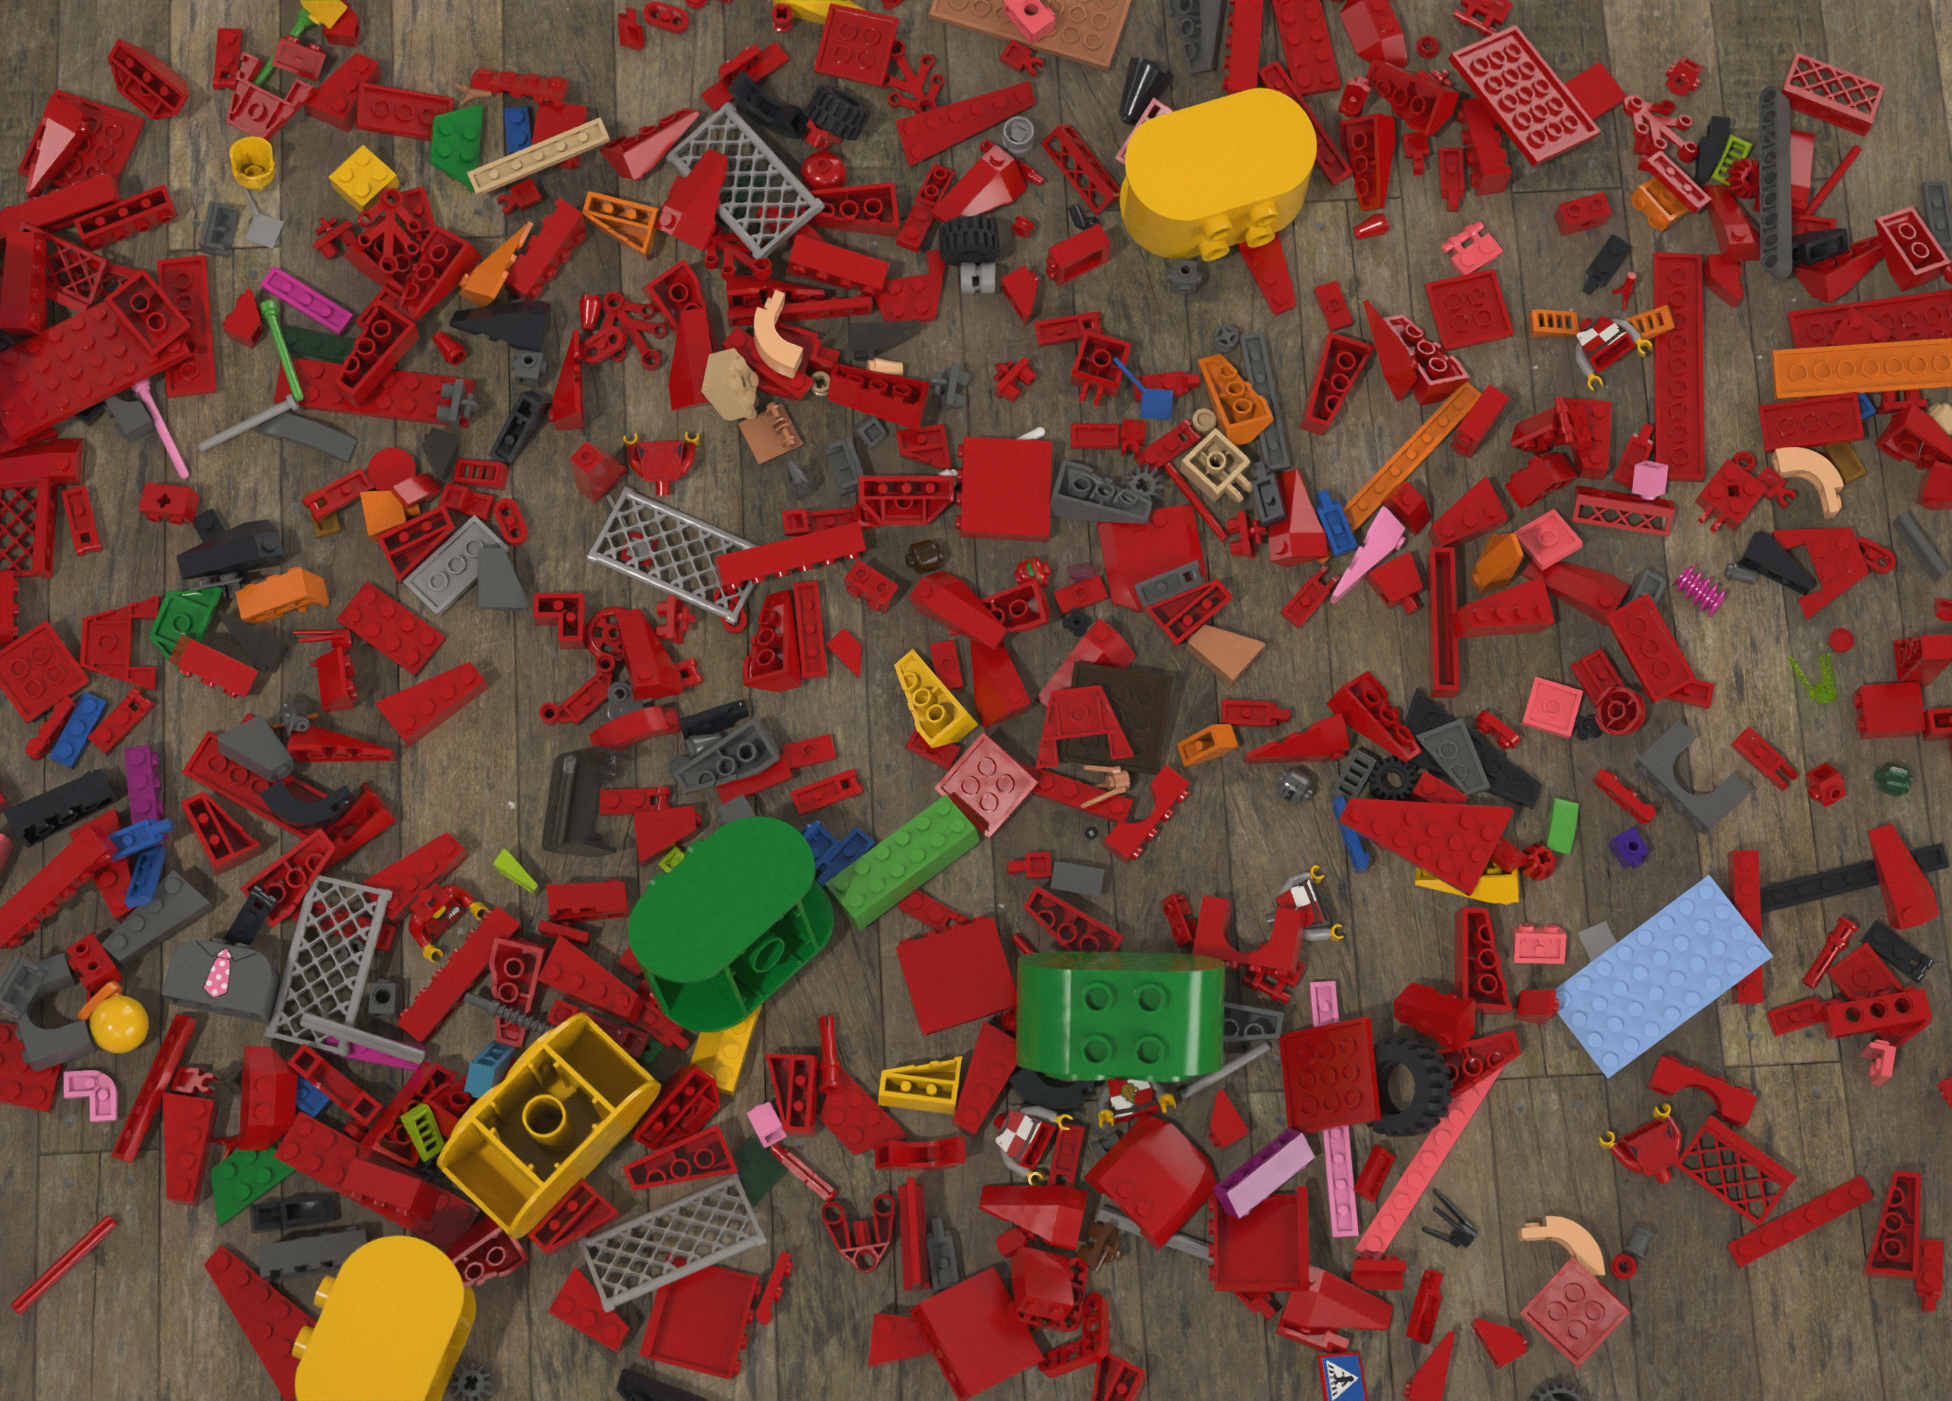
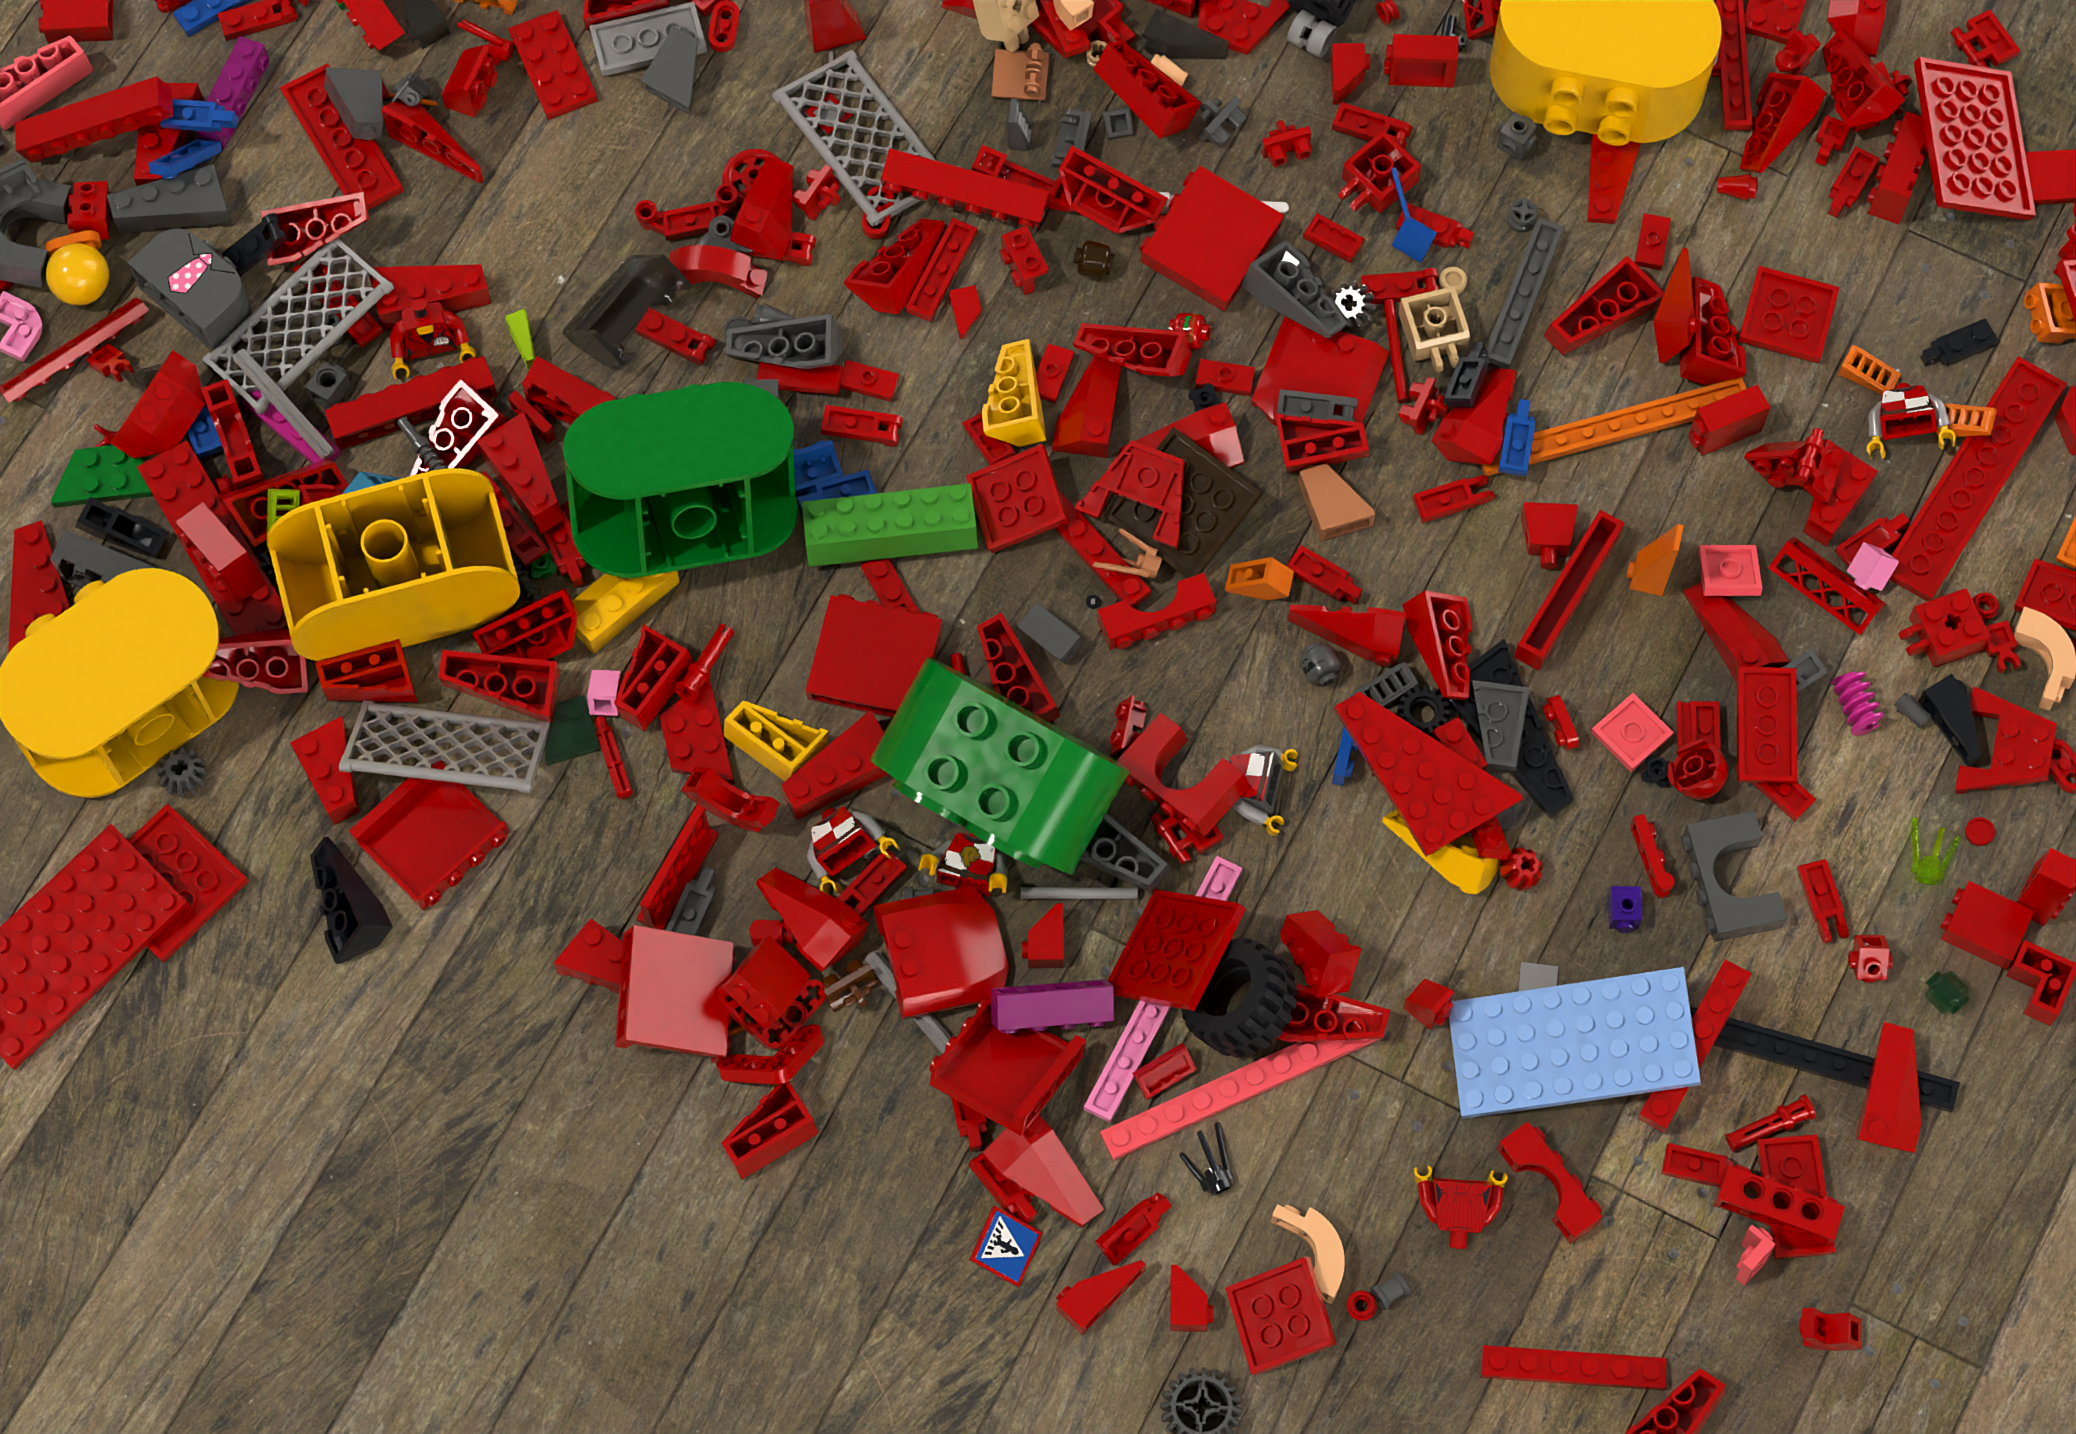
camera: 35 degrees right, 5 degrees down
(60, 807) = (137, 57): black wedge -> none
(187, 1141) = (68, 416): red wedge -> none
(218, 835) = (274, 159): red wedge -> none
(304, 814) = (358, 177): black arch -> none
(358, 824) = (406, 219): red wedge -> none
(431, 702) = (545, 146): red wedge -> none
(564, 611) = (719, 131): red brick -> none
(661, 460) = (901, 43): red torso -> none
(663, 830) = (678, 368): red slope -> none
(713, 719) = (796, 300): black hinge -> none
(774, 1289) = (514, 845): red plate -> none
(840, 1235) = (652, 851): red connector -> none
(925, 446) = (1161, 160): red wing -> none
(957, 607) = (1093, 319): red wedge -> none
(1035, 865) = (1016, 600): red plate -> none
(1035, 1092) = (904, 829): black arch -> none
(1080, 572) = (1238, 355): clear pink slope -> none
(1132, 436) = (1371, 255): red plate -> none
(1237, 407) = (1493, 277): orange wedge -> none
(1377, 1274) = (1106, 1167): red bracket -> none
(1378, 546) = (1555, 481): bright pink wedge -> none
(1408, 507) = (1605, 465): red slope -> none
(1427, 41) = (1909, 43): red plate -> none
(1469, 518) = (1660, 506): red wedge -> none
(1474, 256) = (1830, 268): coral plate -> none
(1478, 964) = (1394, 935): red wedge -> none
(1508, 612) = (1638, 611): red wedge -> none
(1538, 479) = (1758, 505): red brick -> none
(1539, 944) = (1472, 949): coral bracket -> none
(1562, 825) = (1569, 849): bright green slope -> none
(1582, 214) = (1965, 282): red brick -> none
(1626, 289) = (1966, 377): red bar -> none
(1752, 1157) = (1559, 1266): red fence -> none
(1897, 951) = (1845, 1163): black plate -> none

